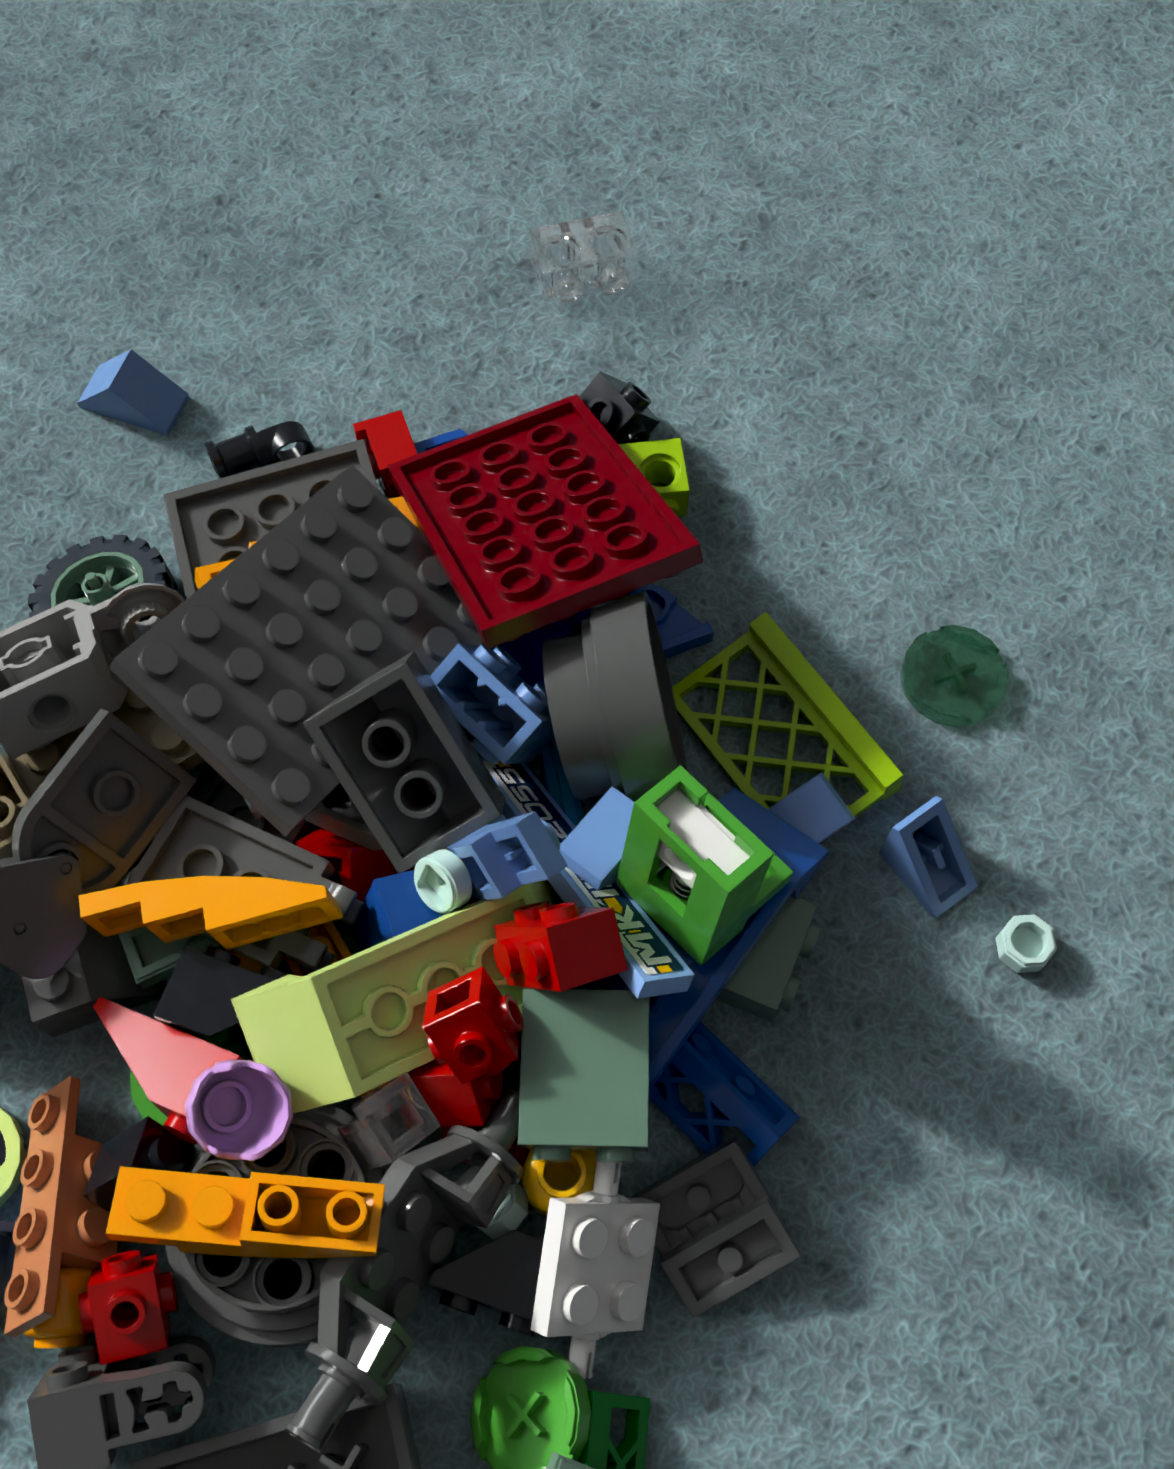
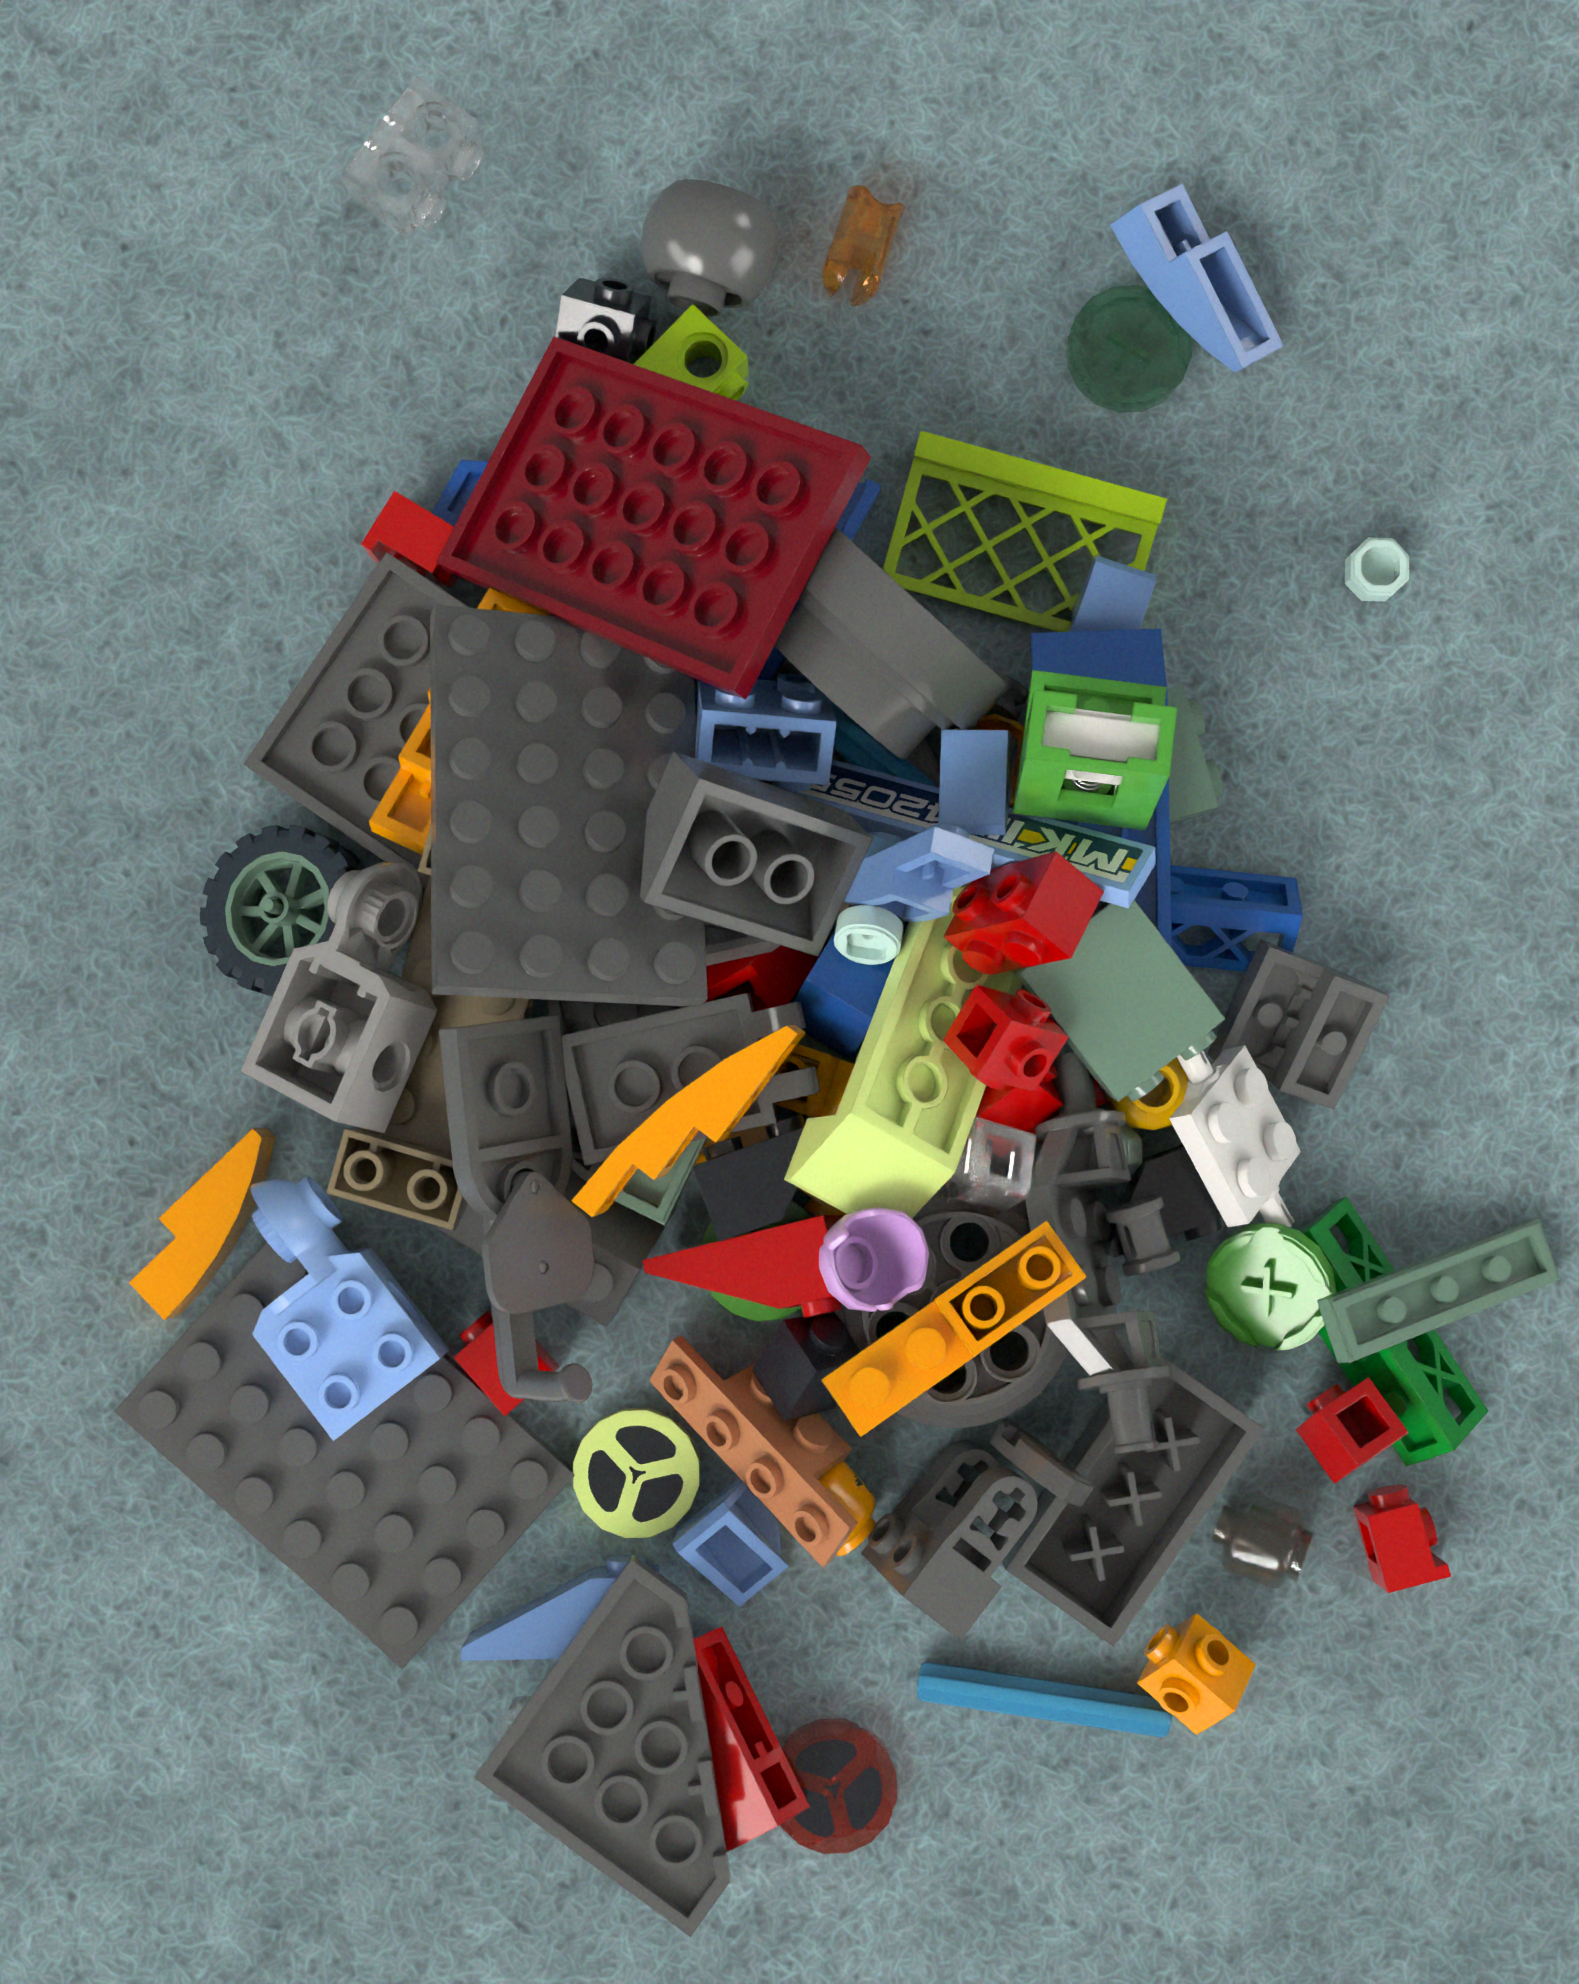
camera: 35 degrees left, 20 degrees up
(128, 1306) = (897, 1469): red brick -> none
(134, 393) = (96, 679): medium blue slope -> none
(232, 1397) = (1040, 1463): none -> dark grey tile
(258, 448) = (275, 647): black connector -> none
(460, 1278) = (1142, 1235): none -> dark grey bush
(720, 414) = (709, 245): none -> dark grey wheel
(823, 486) = (862, 243): none -> clear orange piece
(930, 857) = (1240, 556): medium blue slope -> none
(1035, 660) = (1197, 278): none -> medium blue slope

